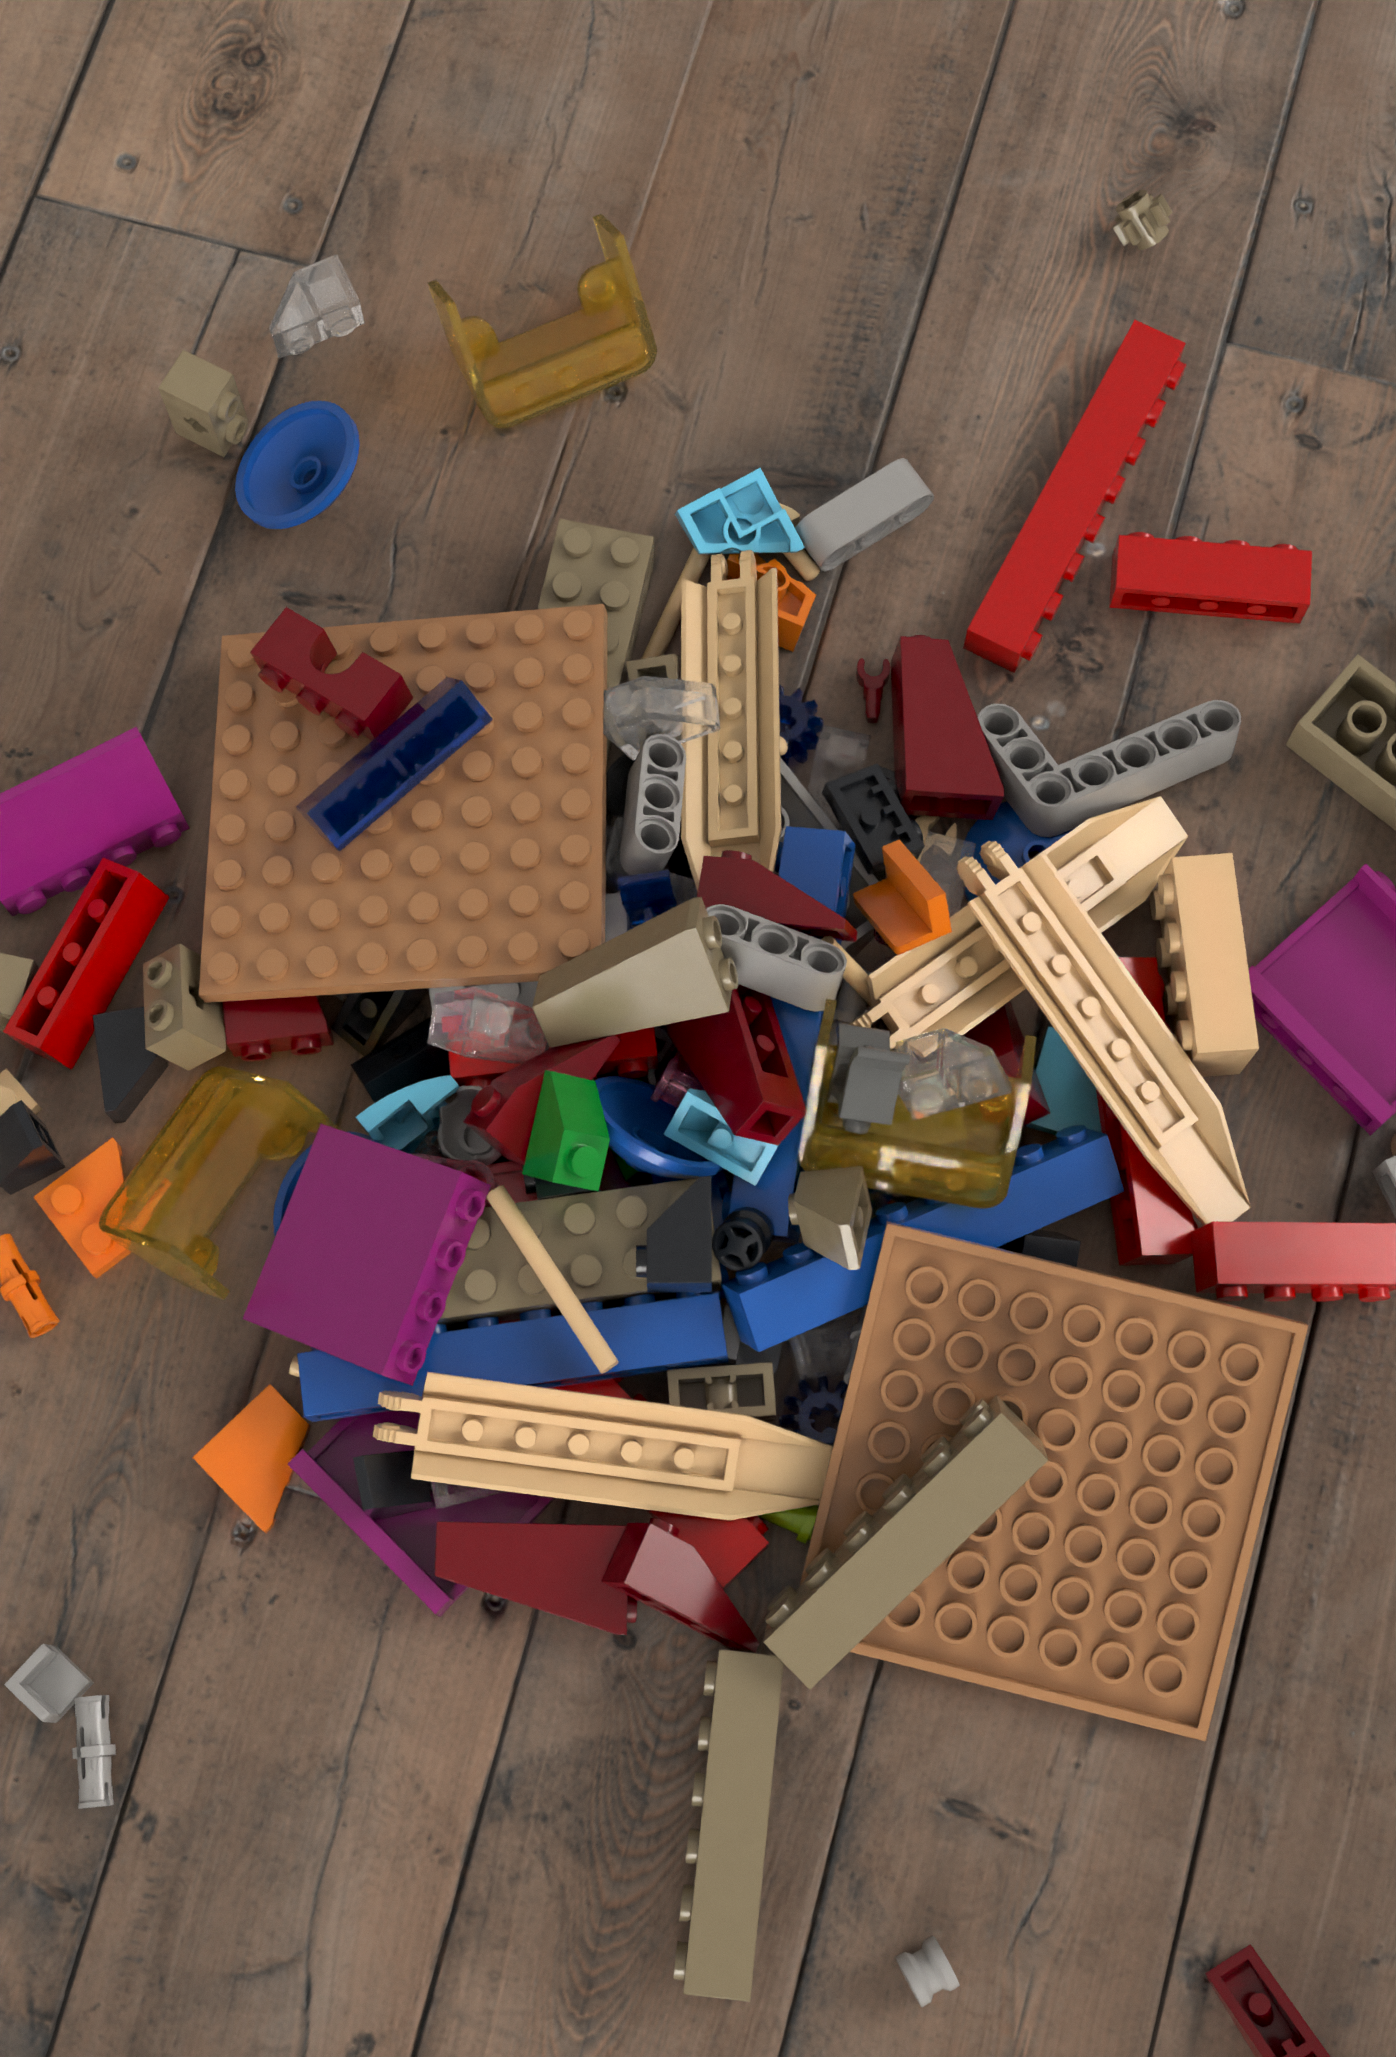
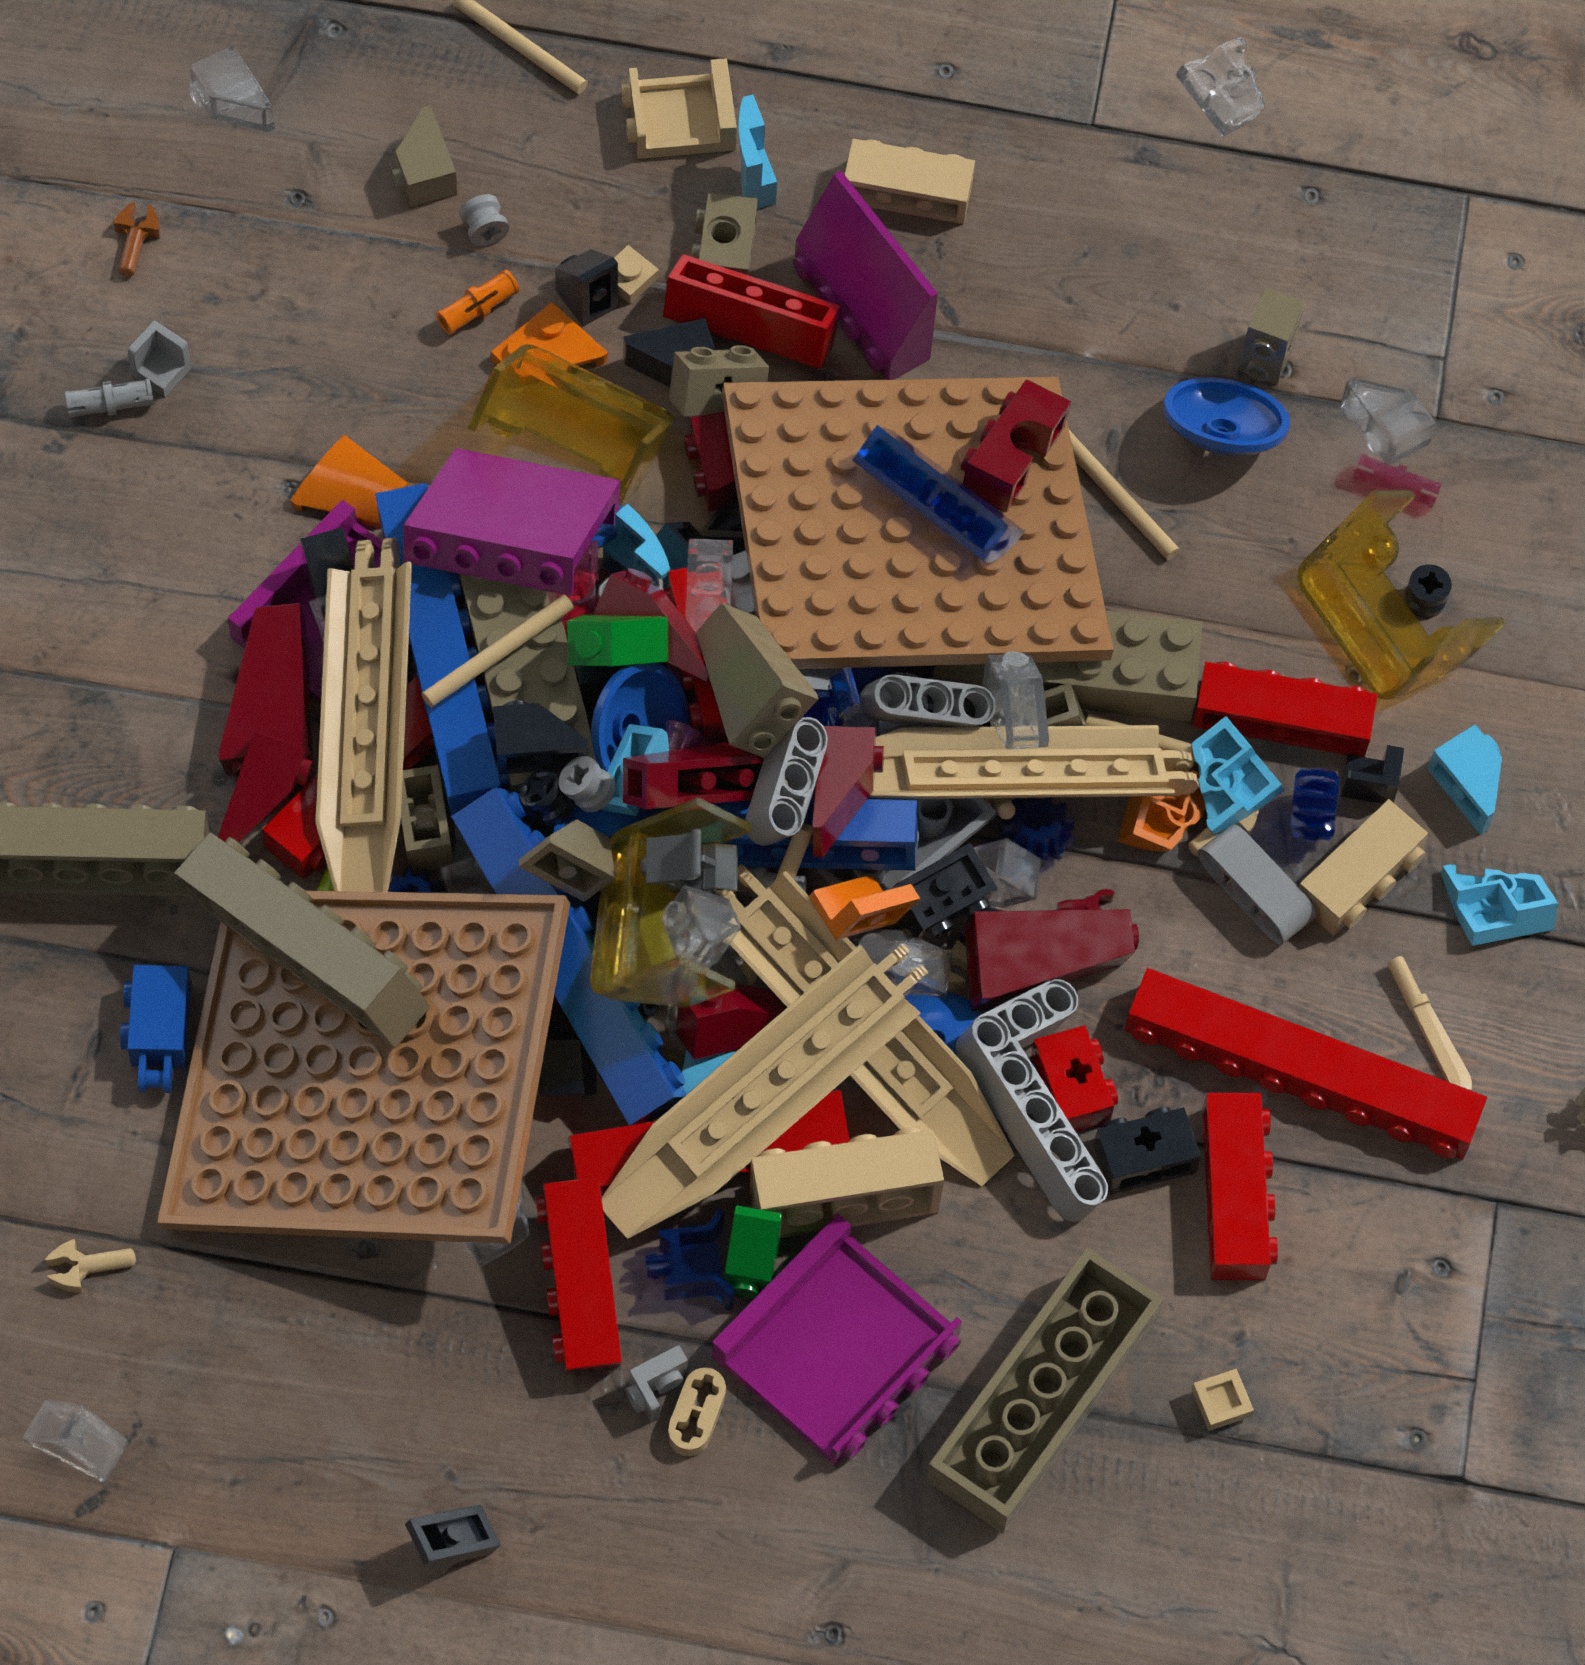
camera: 80 degrees right, 10 degrees down
(387, 587) = (1123, 500): none -> tan bar
(389, 312) = (1397, 478): none -> clear pink pin
(534, 310) = (1421, 599): none -> black wheel
(661, 452) = (1286, 708): none -> red brick
(744, 382) = (1373, 778): none -> black panel
(744, 1175) = (587, 784): none -> light grey wheel
(756, 287) = (1469, 774): none -> medium azure slope
(783, 439) = (1314, 804): none -> clear blue gear
(853, 405) = (1364, 867): none -> tan brick
(900, 287) = (1500, 904): none -> medium azure slope
(954, 1729) = (157, 1022): none -> blue brick
(1045, 369) = (1432, 1029): none -> tan piece
(1099, 704) = (1076, 1054): none -> red brick
(1170, 636) = (1131, 1165): none -> black brick
(1244, 1829) = (84, 1264): none -> tan bar
(1277, 1075) = (752, 1250): none -> green slope
(1277, 1143) = (691, 1262): none -> clear blue piece

